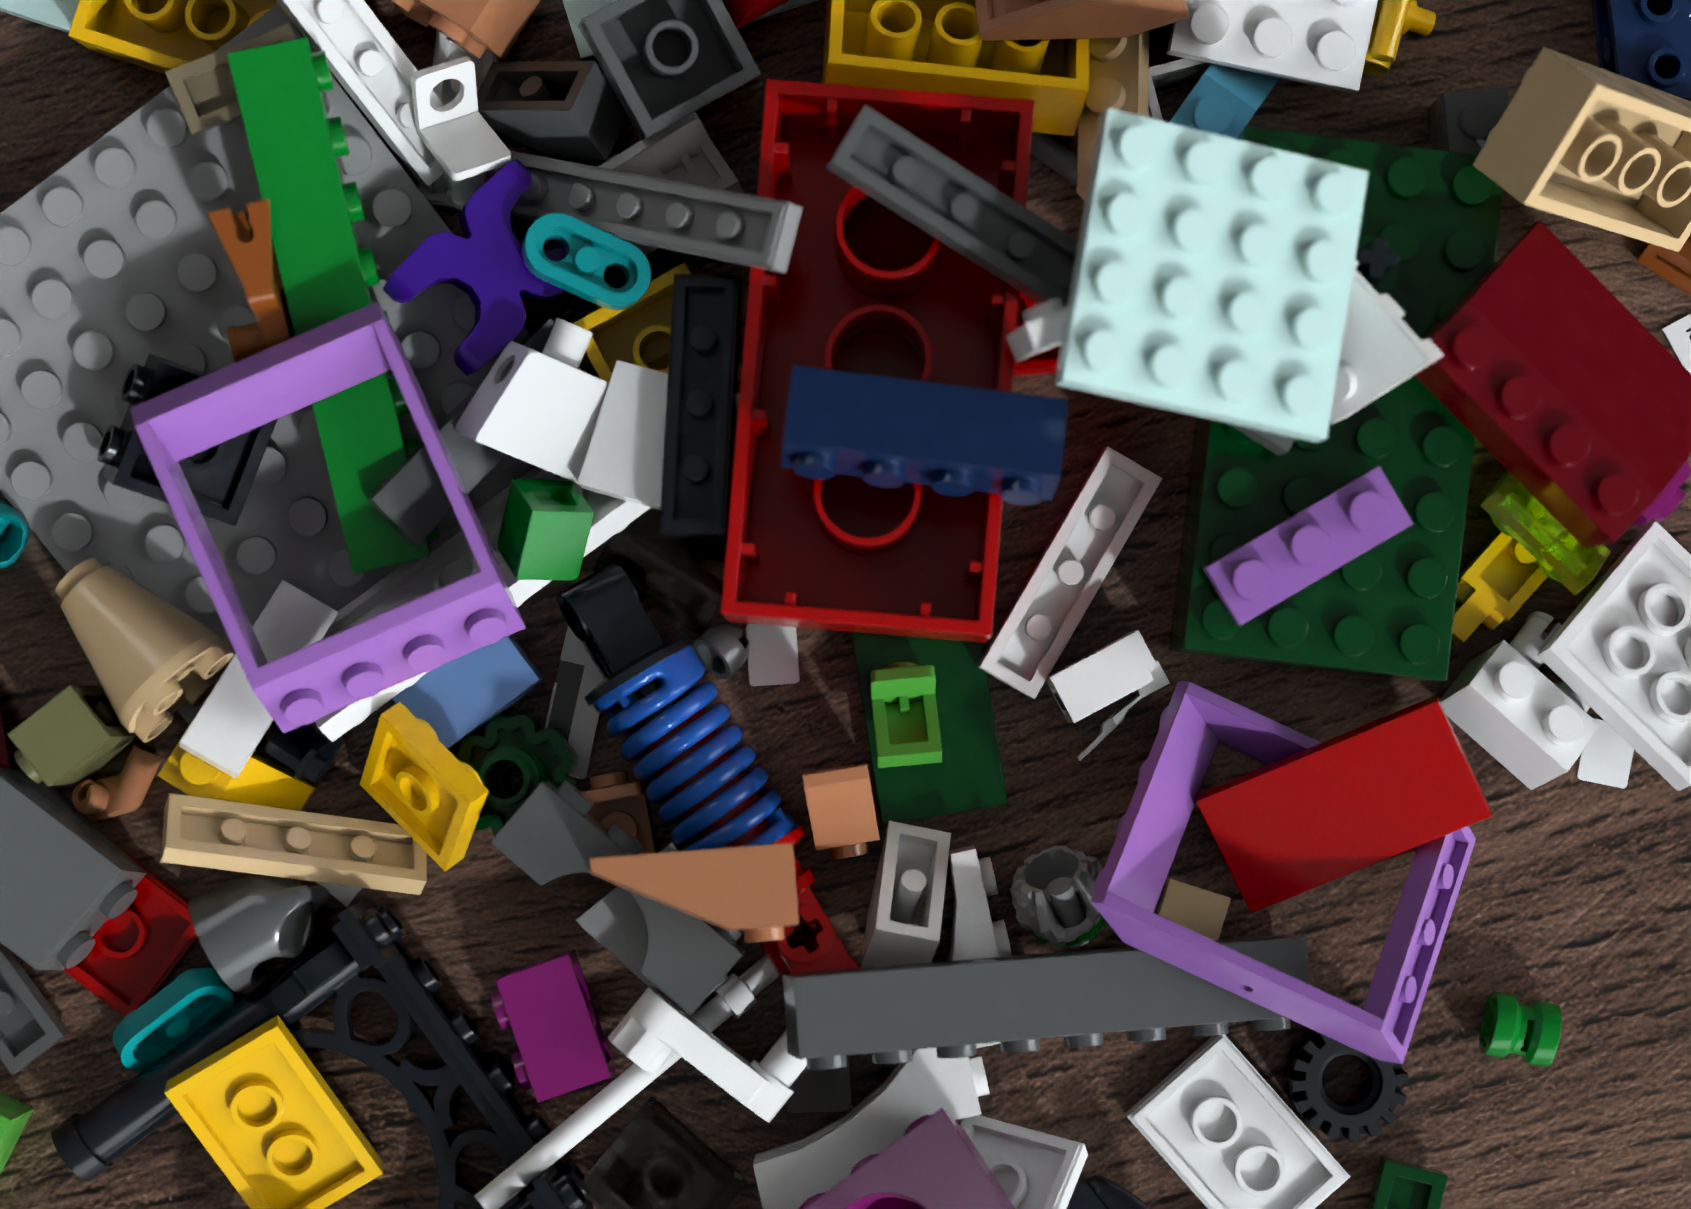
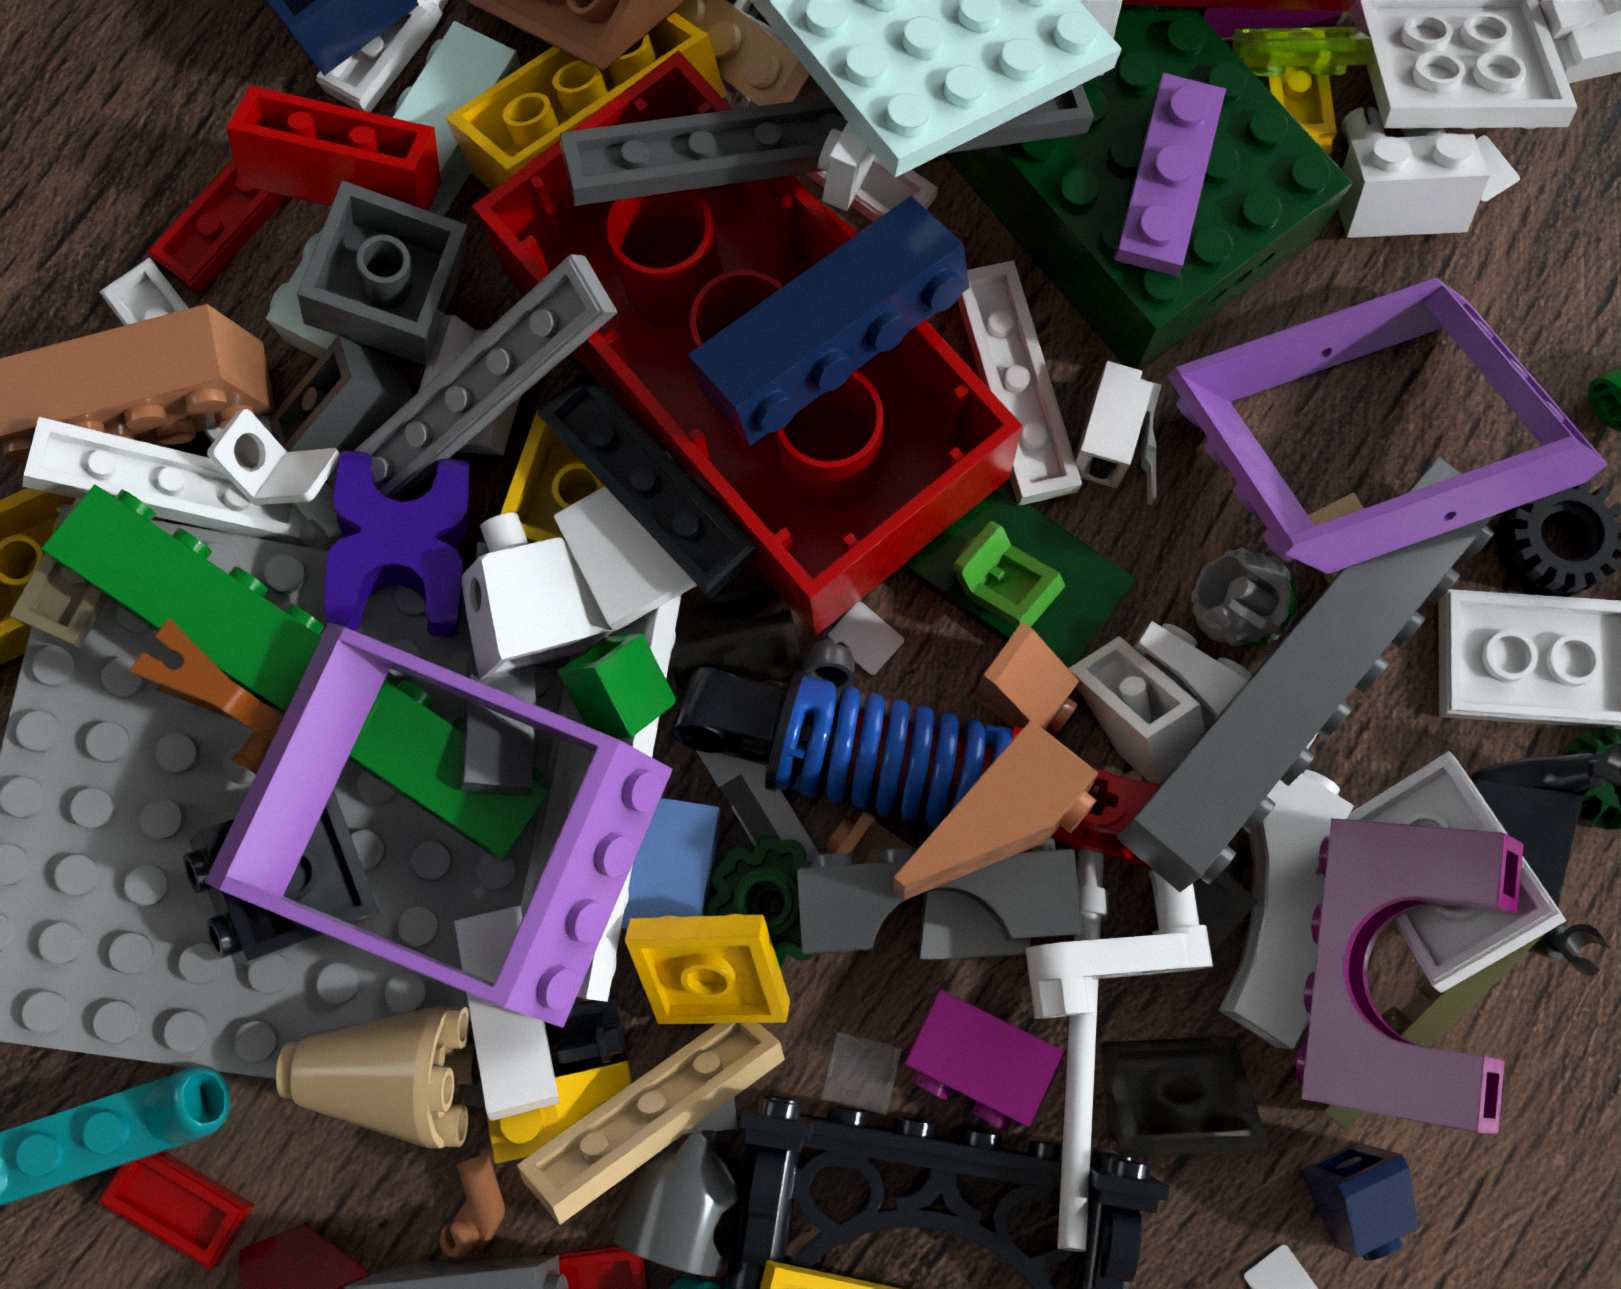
camera: 45 degrees left, 10 degrees down
(70, 737) = (398, 1200): olive brick -> none
(466, 953) = (861, 1073): none -> clear tile
(586, 258) = (461, 463): teal plate -> none
(1344, 804) = (1367, 345): red tile -> none

